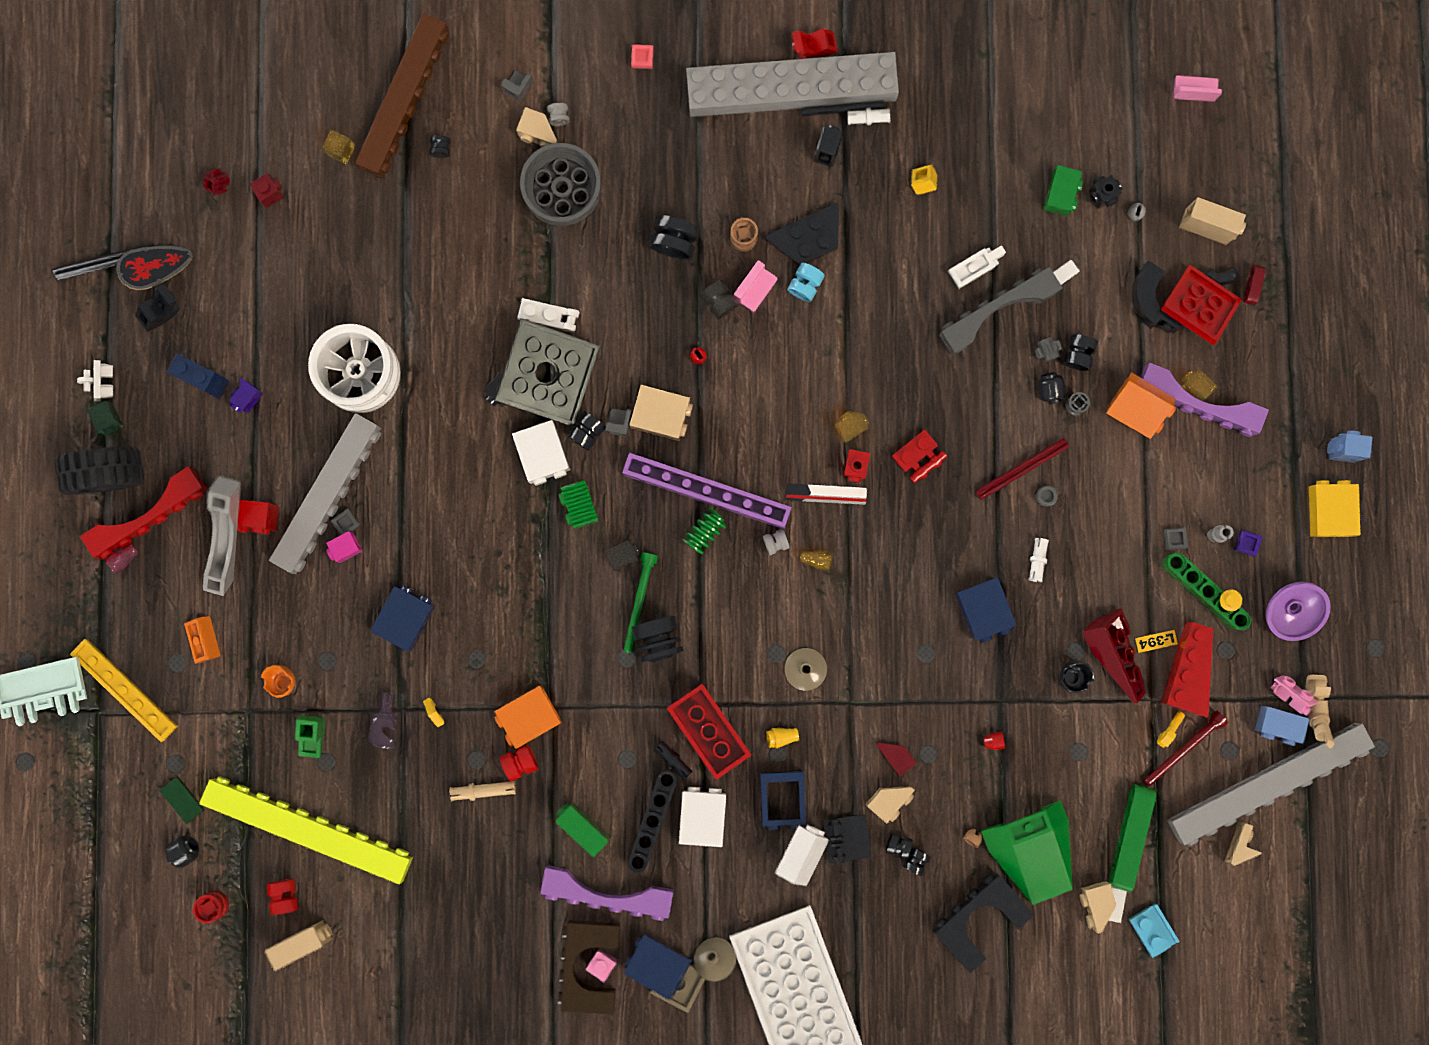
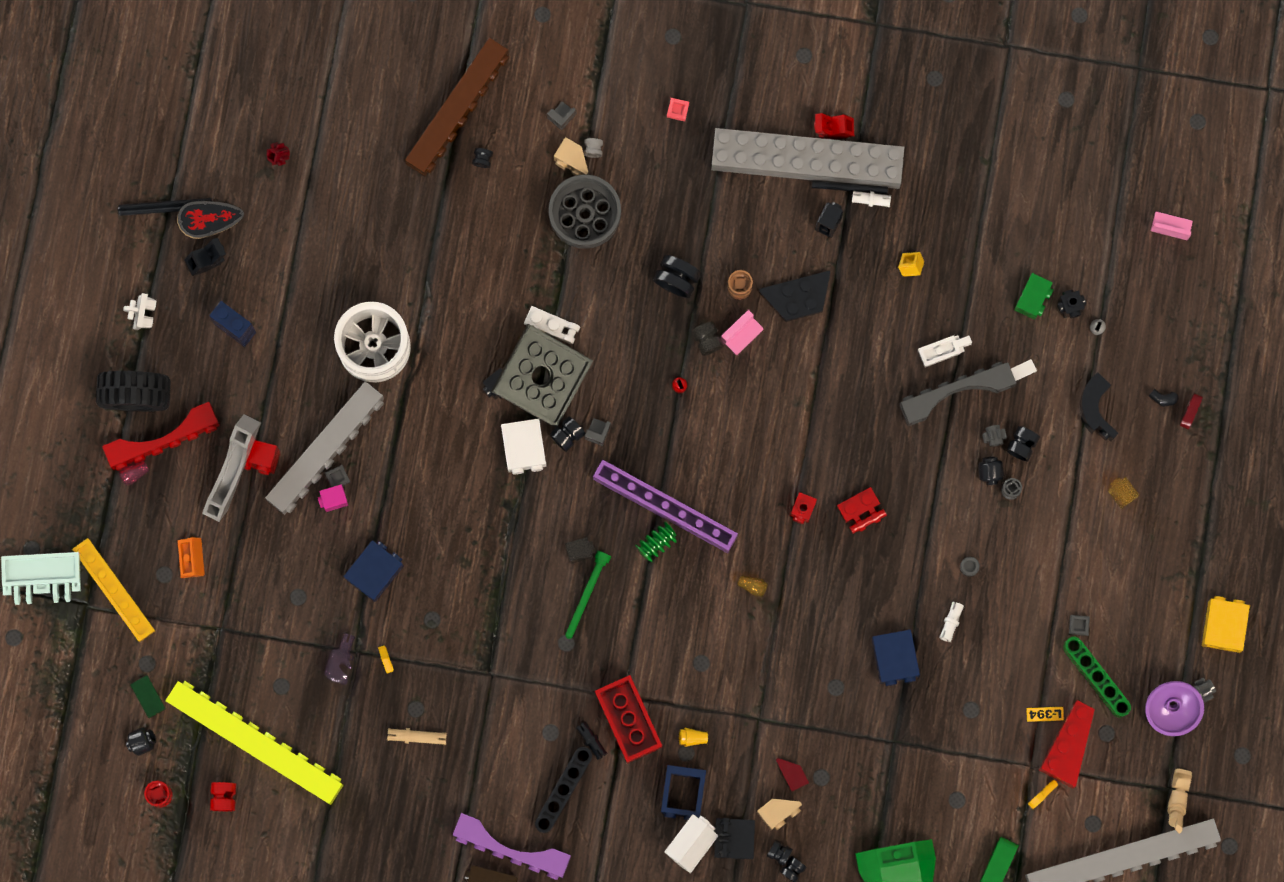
camera: 10 degrees right, 5 degrees down
(105, 418) = (141, 346): clear green brick -> none
(244, 397) = (268, 349): dark purple brick -> none
(267, 190) = (322, 169): dark red brick -> none
(278, 680) = (253, 605): orange hair -> none
(299, 944) = (231, 840): tan brick -> none
(310, 735) = (273, 659): green brick -> none
(338, 146) = (392, 142): clear yellow brick -> none
(518, 763) = (454, 717): red wheel -> none
(527, 717) = (469, 678): orange brick -> none
(579, 505) = (549, 498): green brick -> none
(582, 828) = (500, 784): green brick -> none
(657, 639) = (597, 629): black wheel -> none
(661, 413) = (637, 430): tan brick -> none
(702, 817) = (608, 795): white brick -> none
(780, 539) = (719, 563): light grey wheel -> none
(794, 671) = (725, 692): dark tan dish -> none
(808, 275) = (792, 332): medium azure wheel -> none
(826, 494) = (772, 529): sticker -> none
(851, 425) = (805, 472): clear yellow brick -> none
(972, 839) = (846, 859): medium nougat hinge -> none
(994, 741) = (882, 776): red hose -> none
(1022, 469) = (951, 538): dark red axle -> none
(1076, 676) = (965, 731): black hair -> none
(1111, 646) = (1003, 710): dark red wedge -> none
(1141, 406) = (1067, 500): orange brick -> none
(1201, 304) = (1138, 420): red plate -> none
(1213, 221) = (1162, 348): tan brick -> none
(1216, 721) = (1084, 795): dark red piece -> none
(1220, 533) = (1120, 623): light grey pin -> none
(1230, 600) = (1114, 686): yellow plate -> none
(1245, 417) = (1089, 484): medium lavender arch -> none
(1248, 543) = (1143, 641): dark purple tile -> none
(1281, 724) = (1142, 808): medium blue brick -> none
(1302, 699) = (1153, 775): bright pink hinge -> none
(1326, 582) = (1205, 689): none -> dark grey gear
(1350, 447) = (1247, 571): medium blue brick -> none

